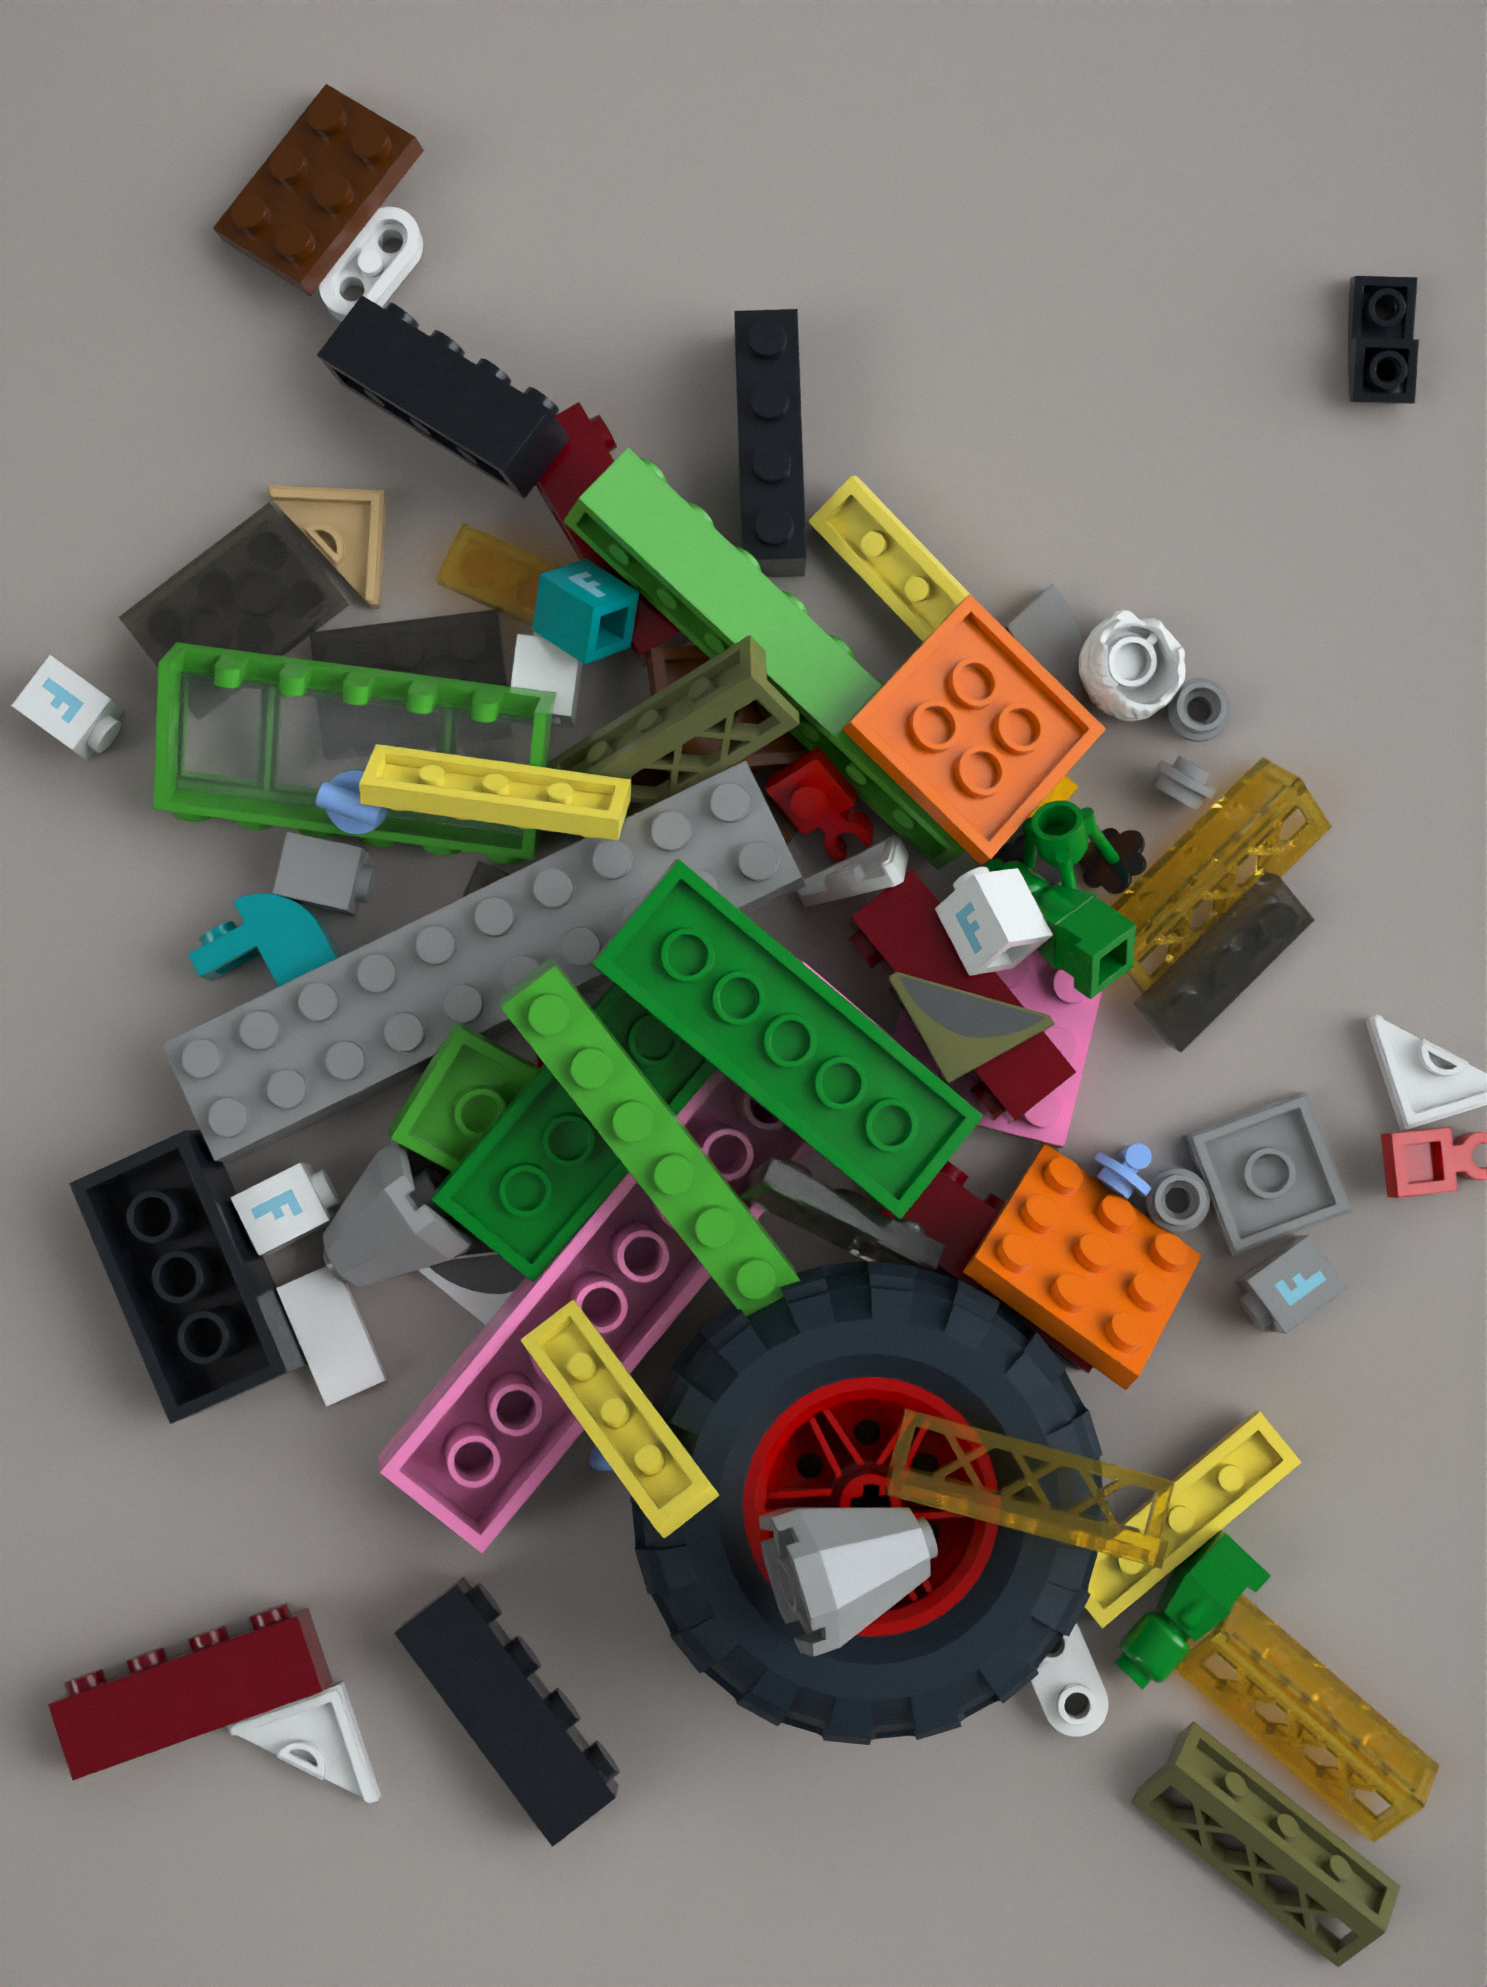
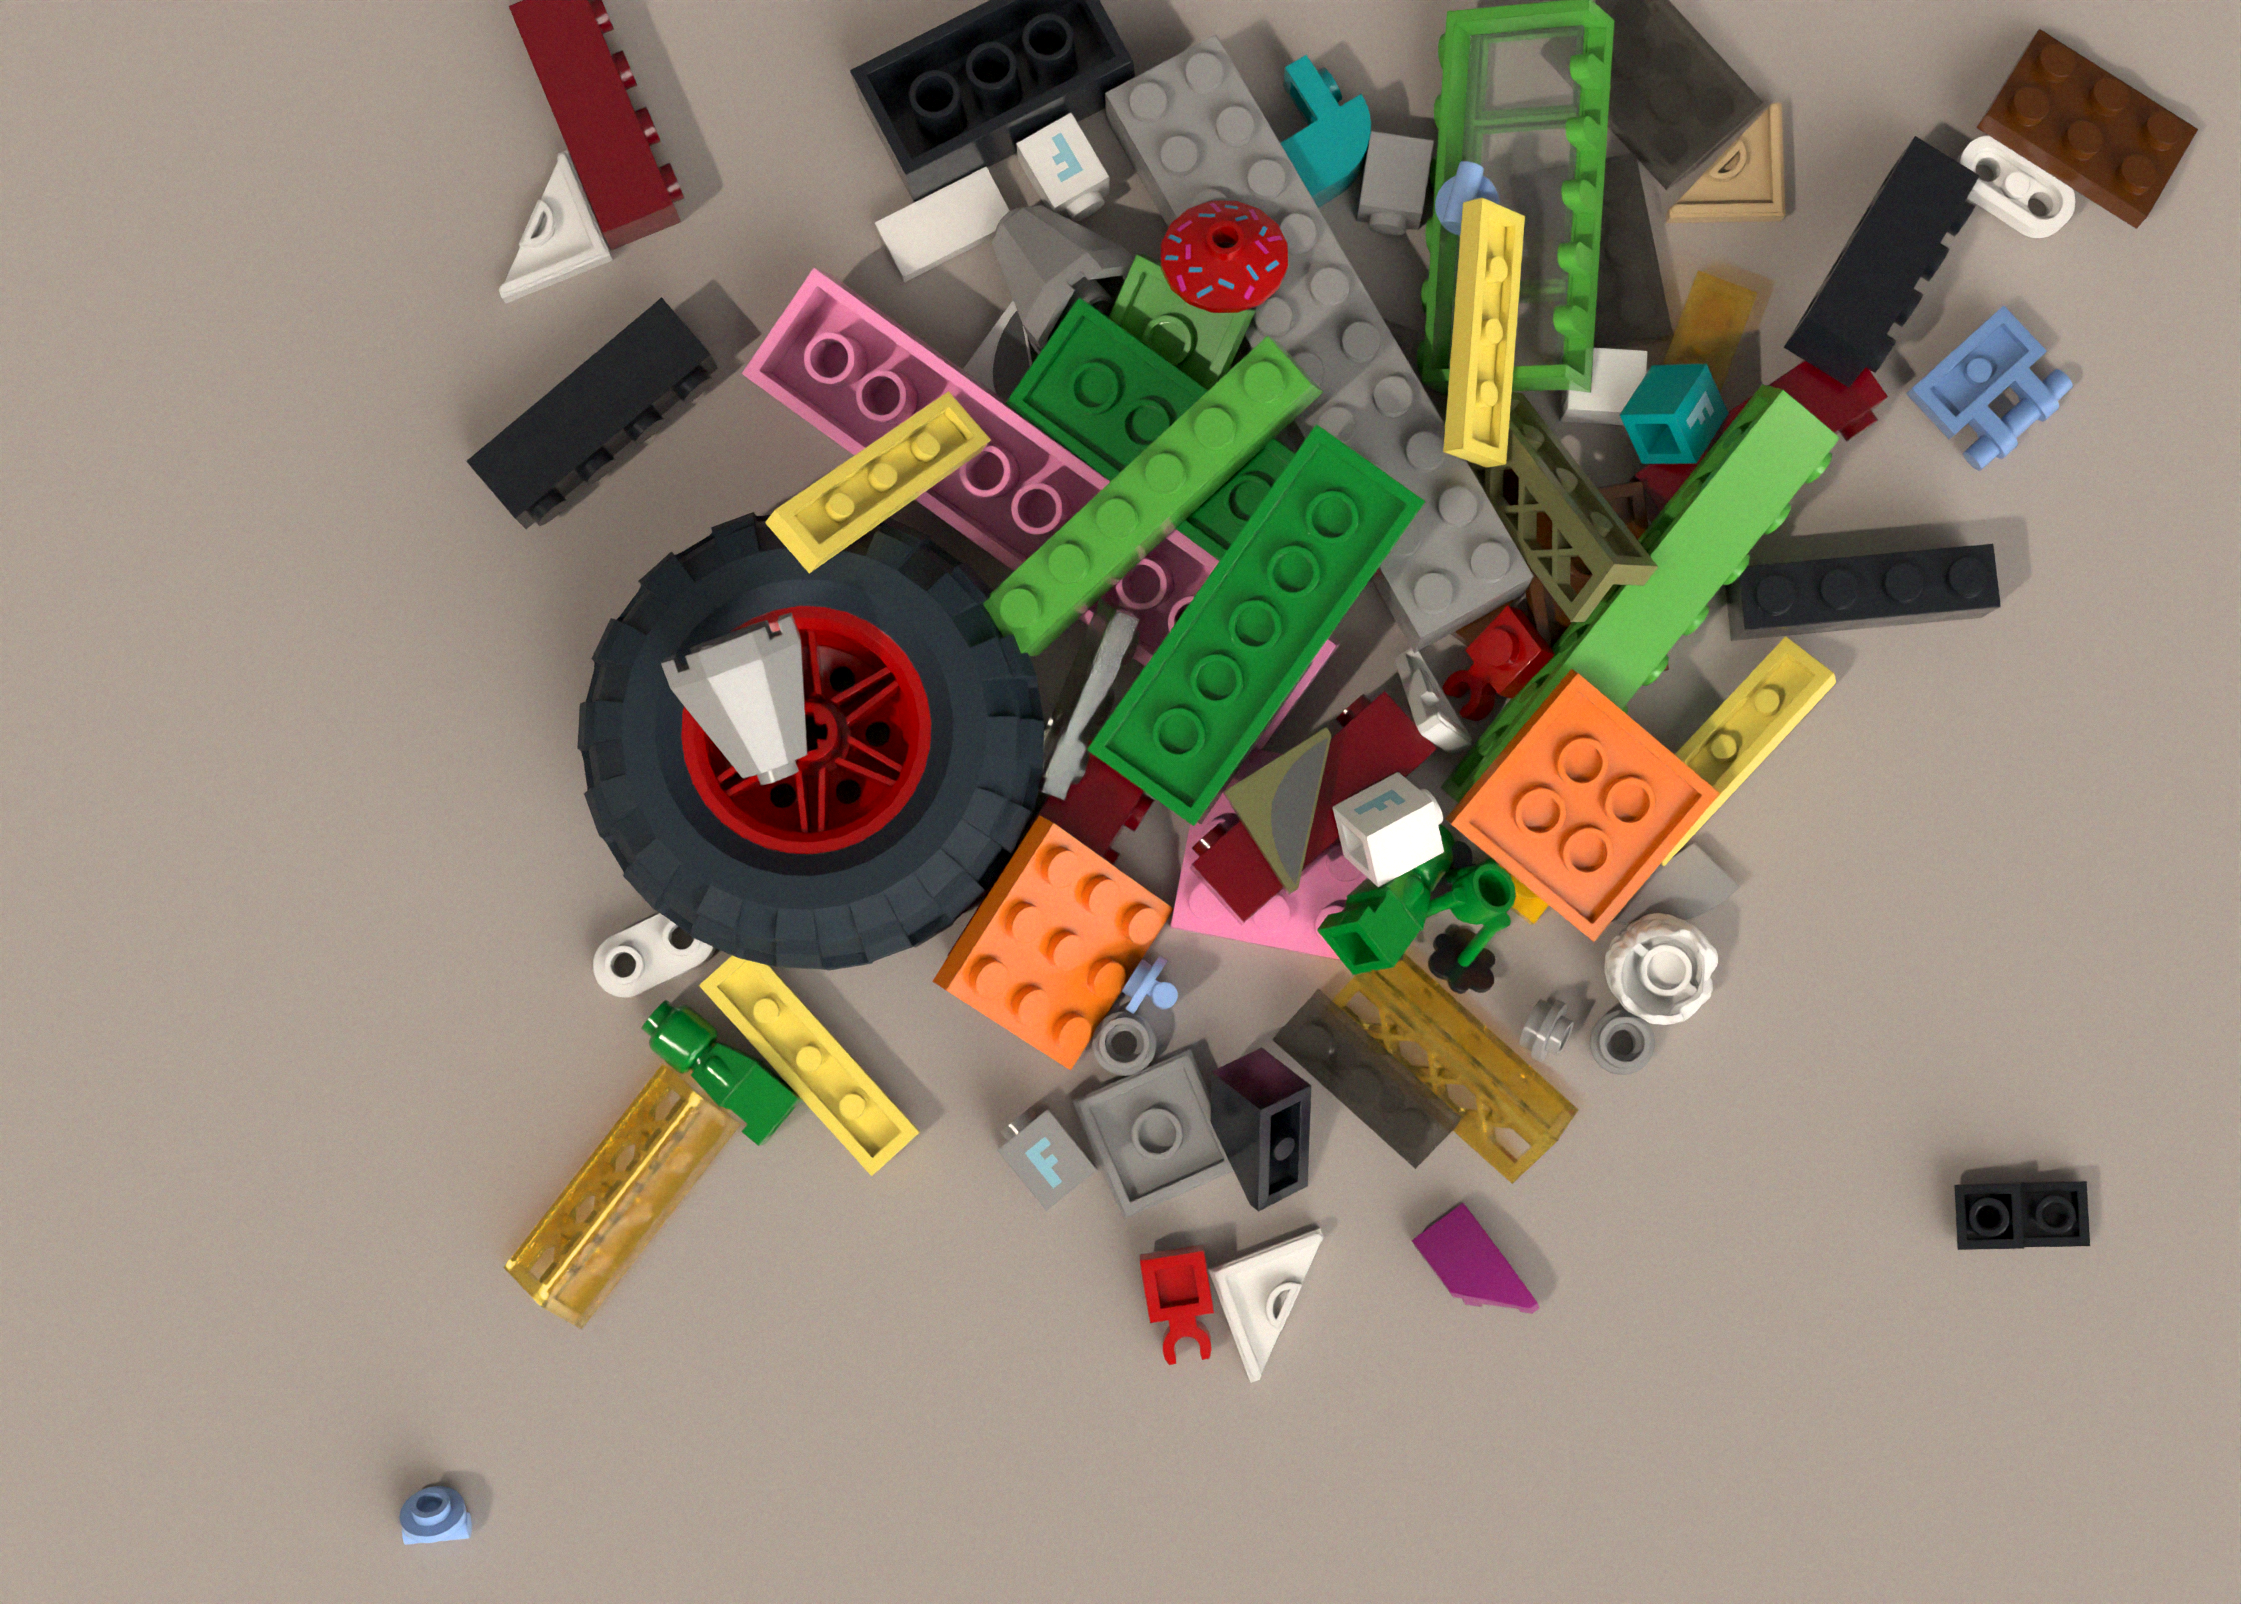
camera: 85 degrees right, 0 degrees up
(424, 1052) = (1224, 277): none -> red dish
(558, 317) = (1980, 371): none -> medium blue plate
(1026, 1514) = (807, 866): clear yellow fence -> none
(1268, 1067) = (1263, 1125): none -> black slope
(1278, 1841) = (502, 1167): olive fence -> none
(1409, 871) = (1472, 1263): none -> magenta slope

